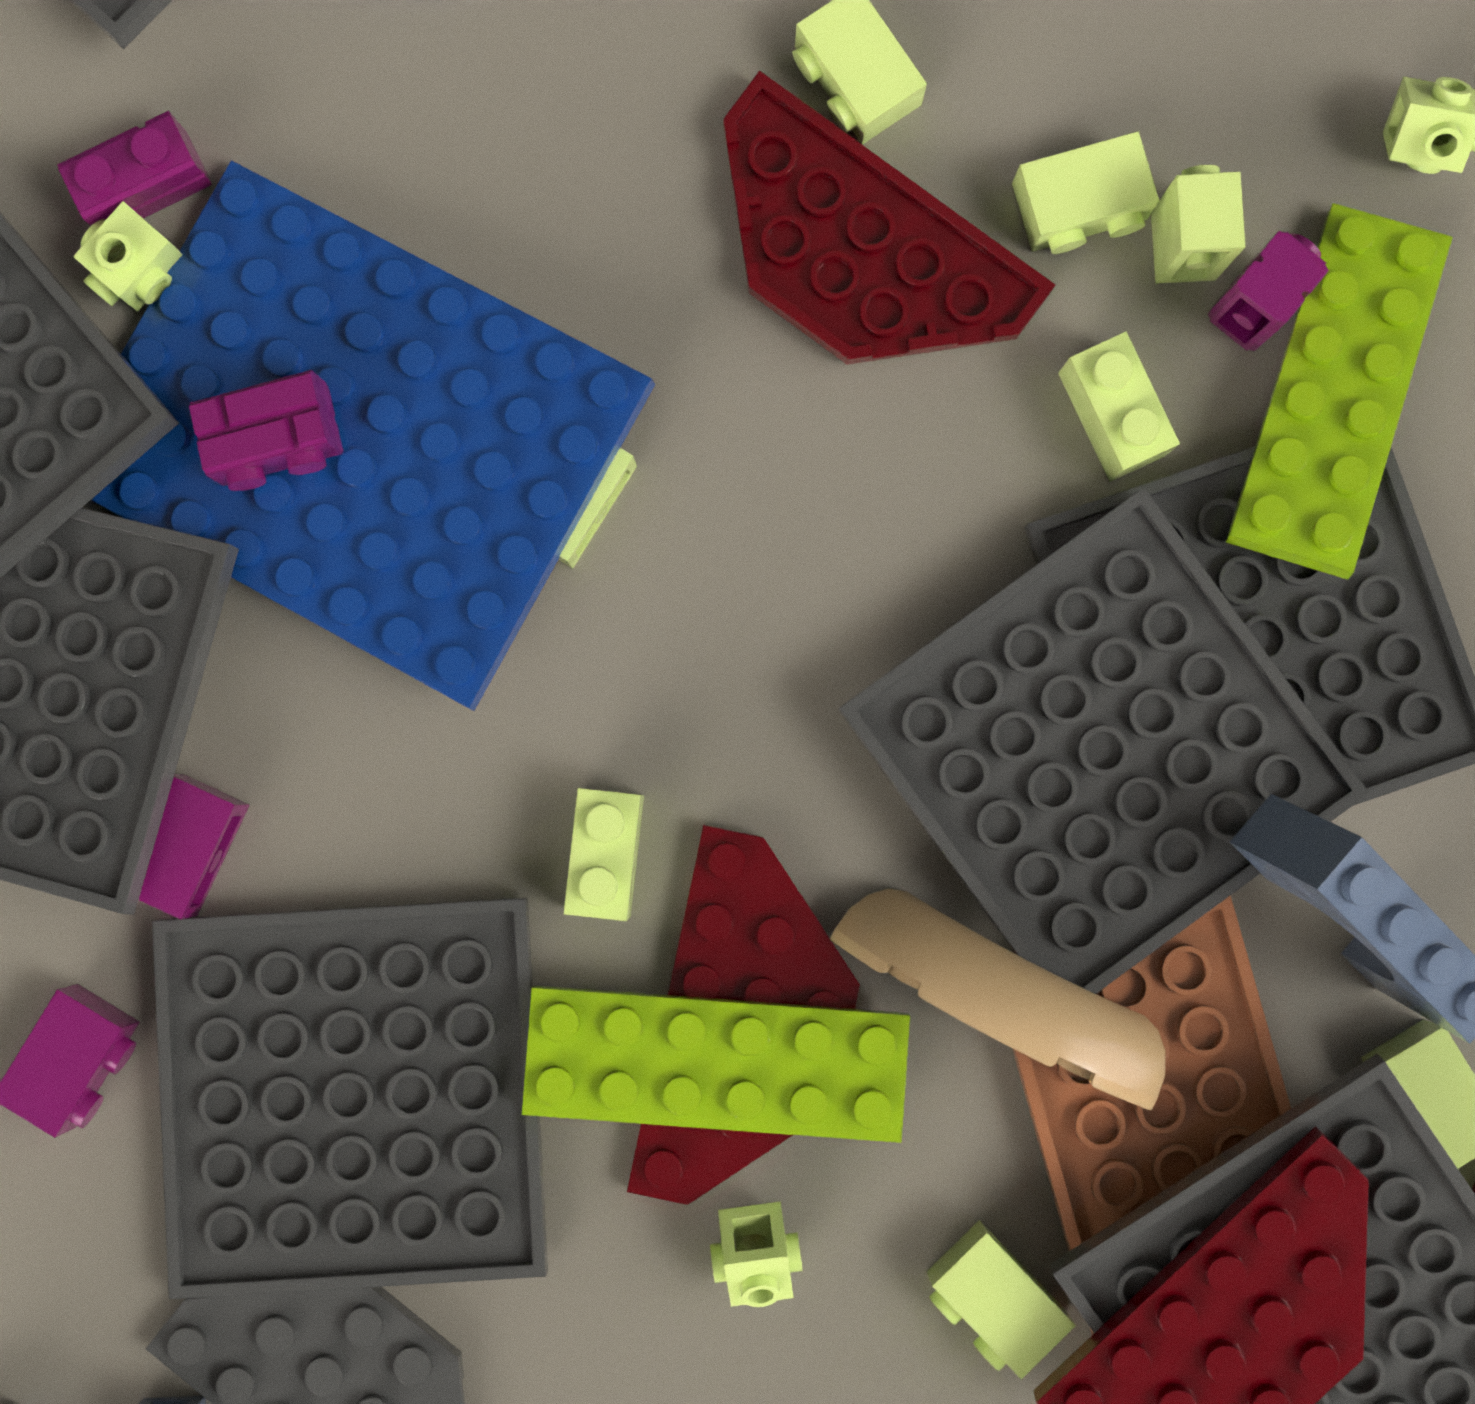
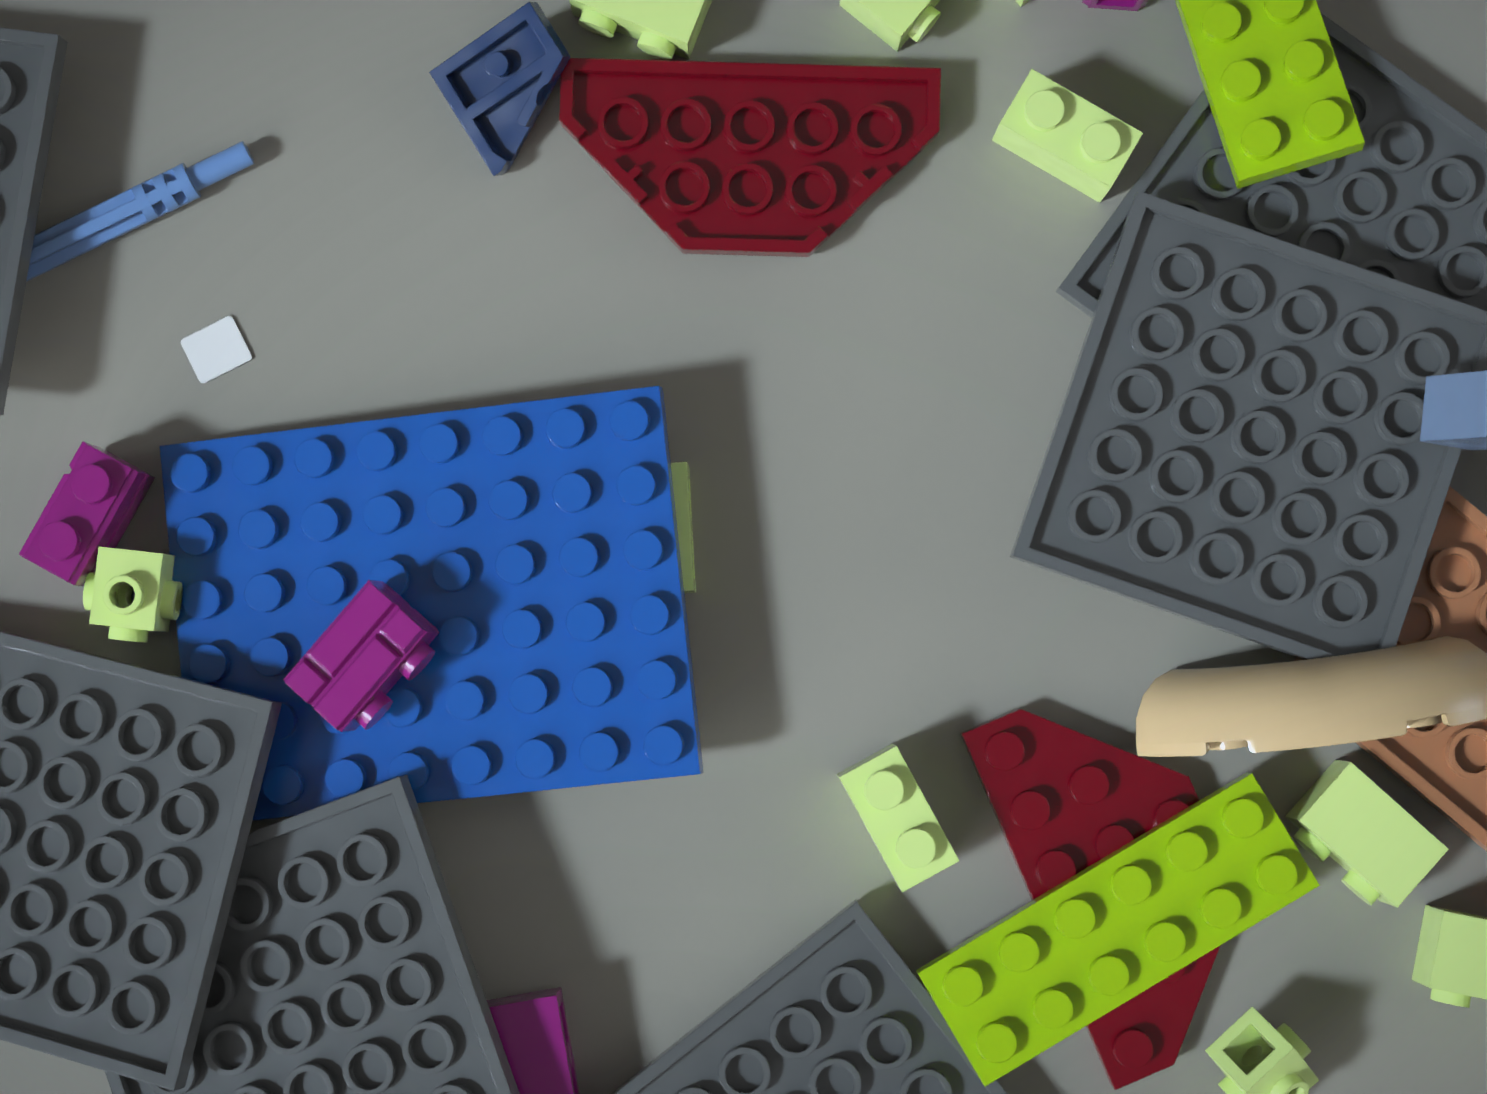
camera: 35 degrees left, 0 degrees up
(330, 117) = (216, 349): none -> white sticker
(700, 59) = (503, 83): none -> dark blue wing
(969, 1129) = (1365, 834): none -> yellowish green brick

